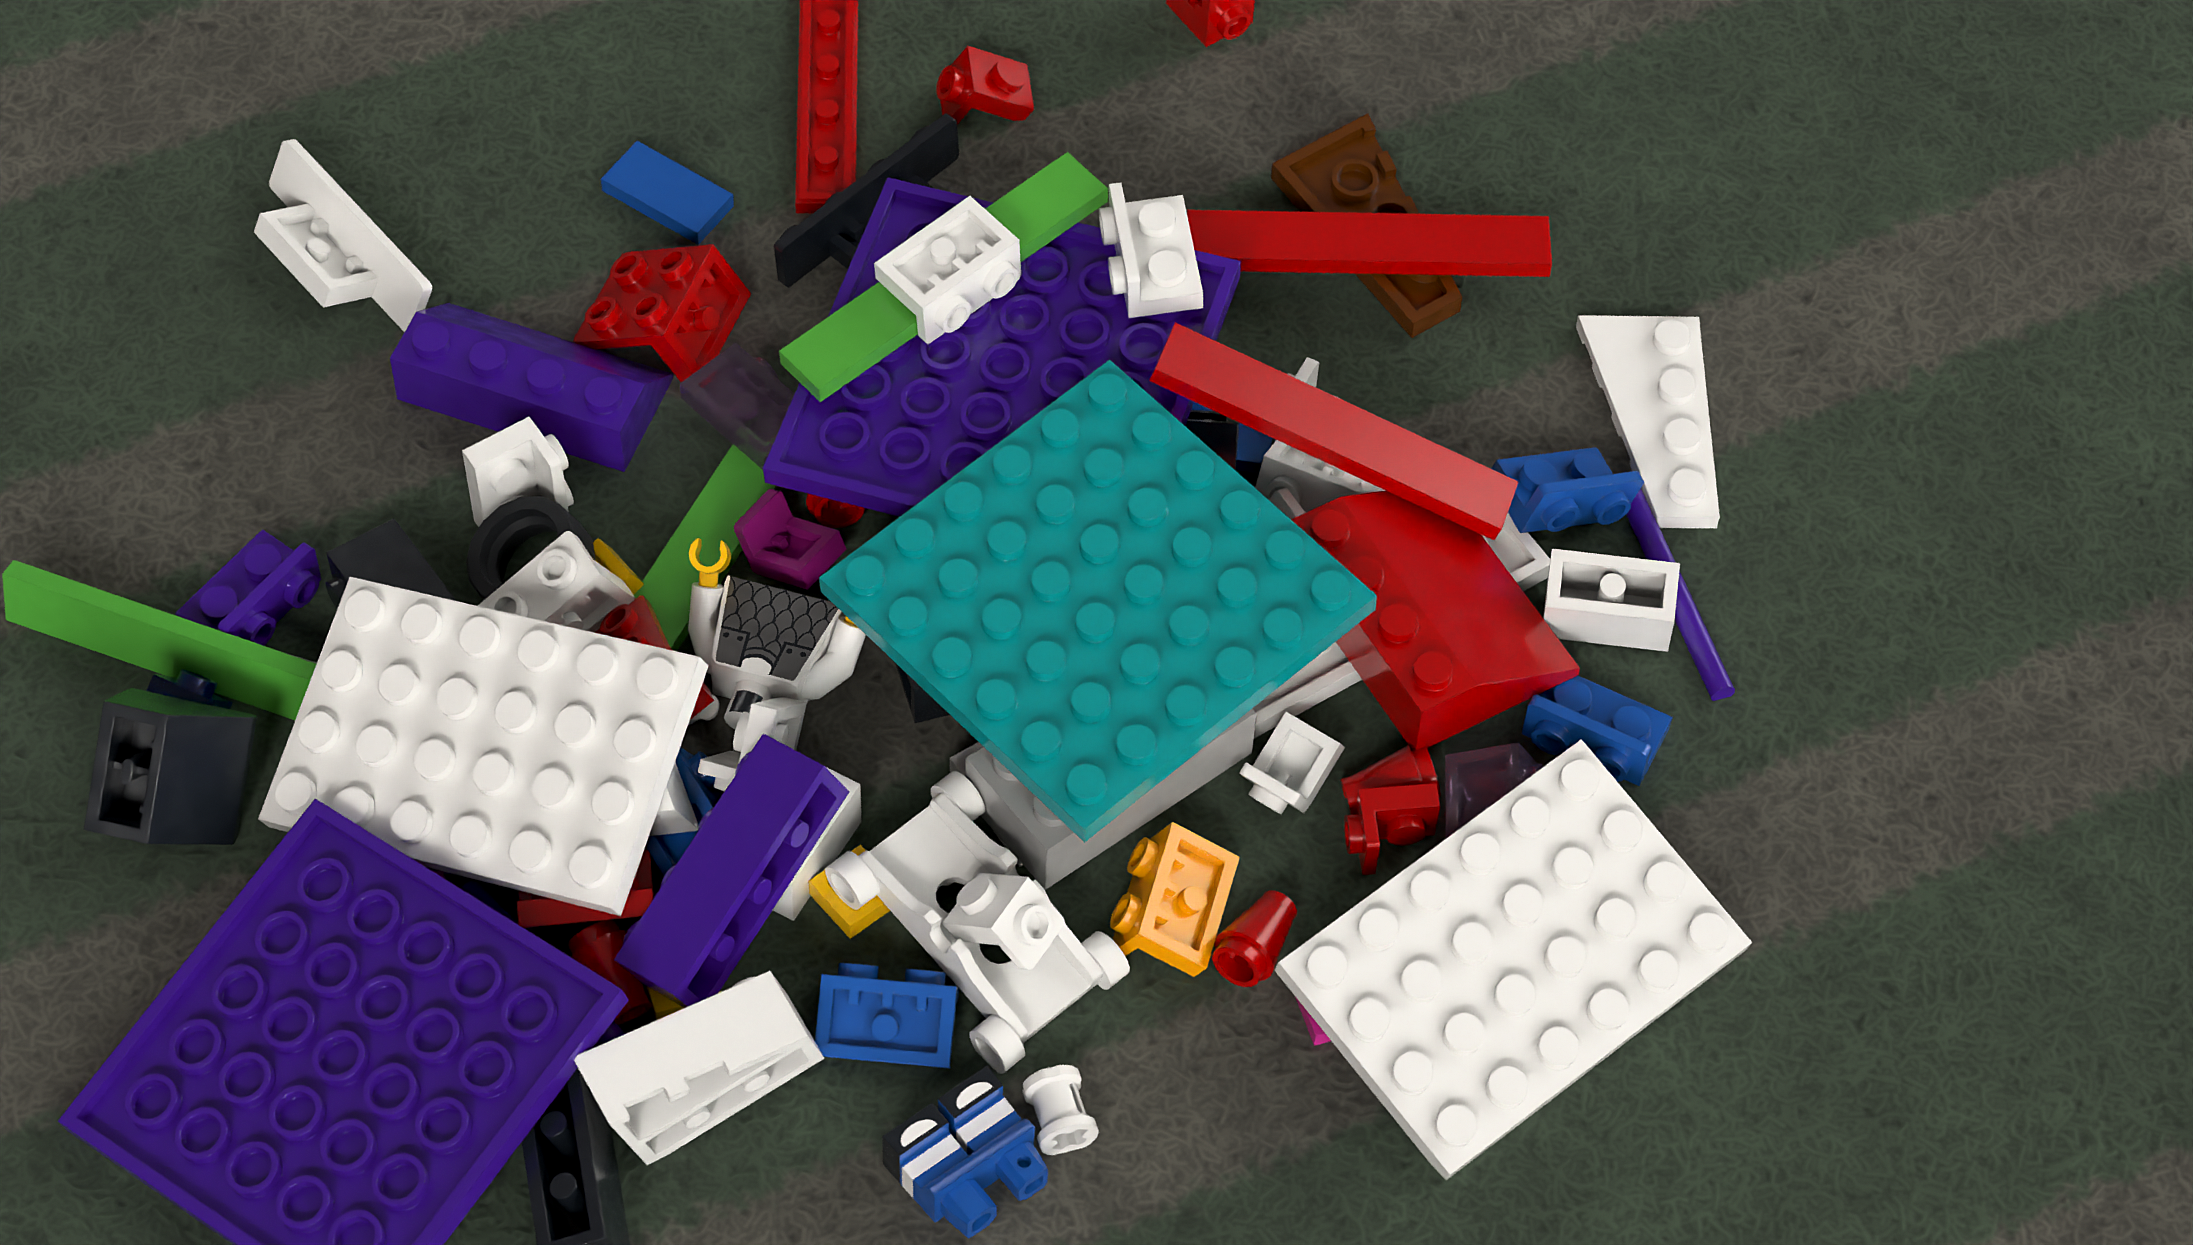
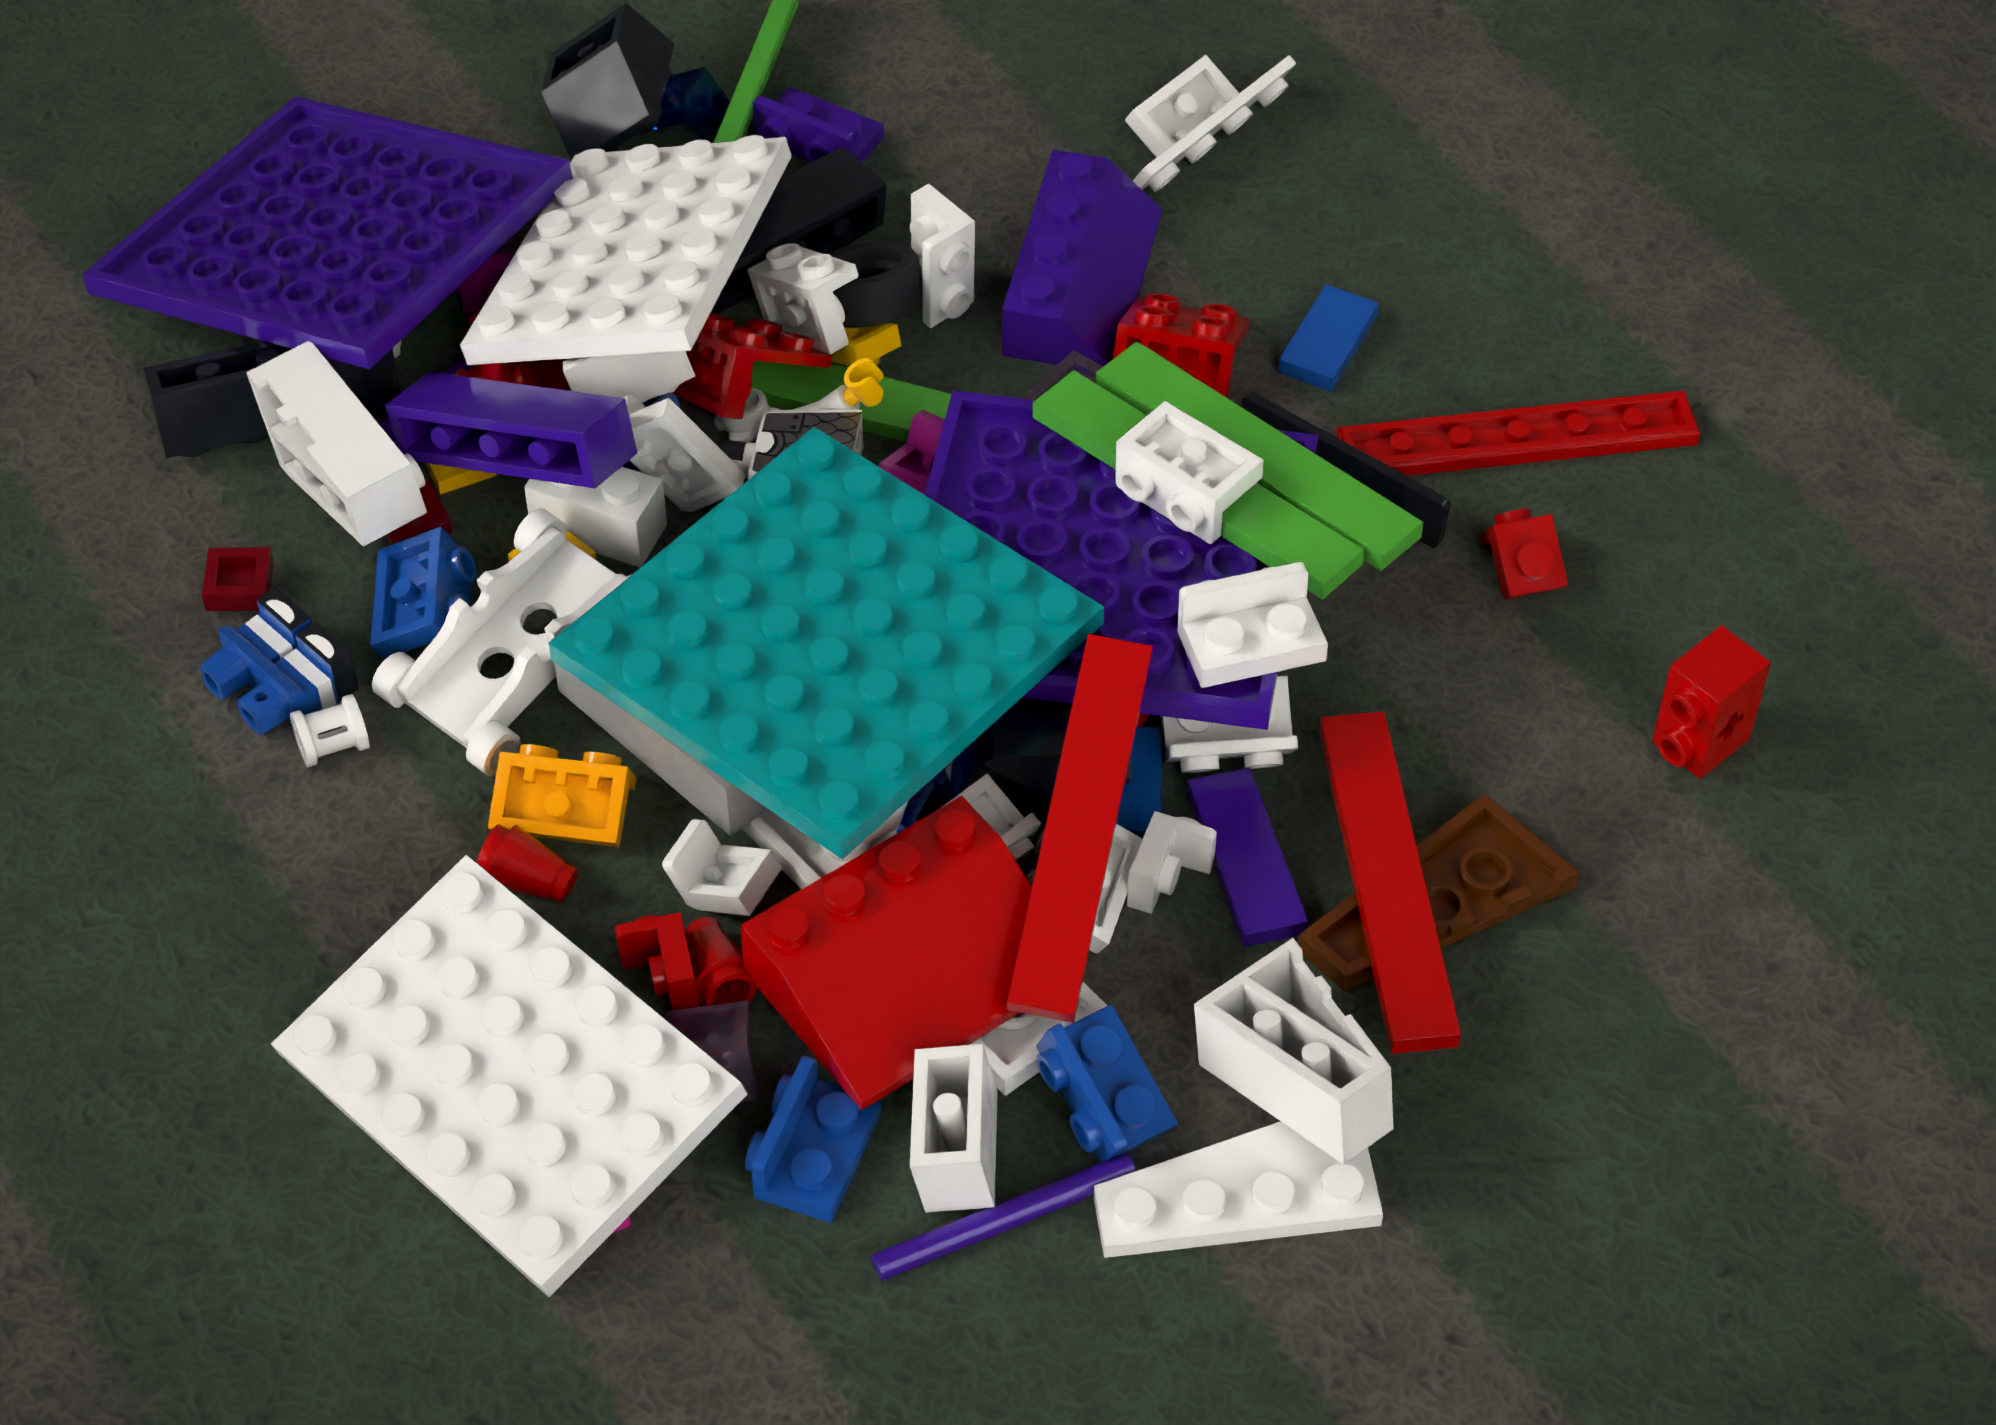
camera: 85 degrees right, 5 degrees down
(829, 1197) = (237, 578): none -> dark red plate
(845, 265) = (1288, 467): none -> bright green tile
(1006, 914) = (493, 639): white bracket -> none
(1344, 351) = (1248, 857): none -> dark purple tile
(1563, 332) = (1296, 1054): none -> white wedge

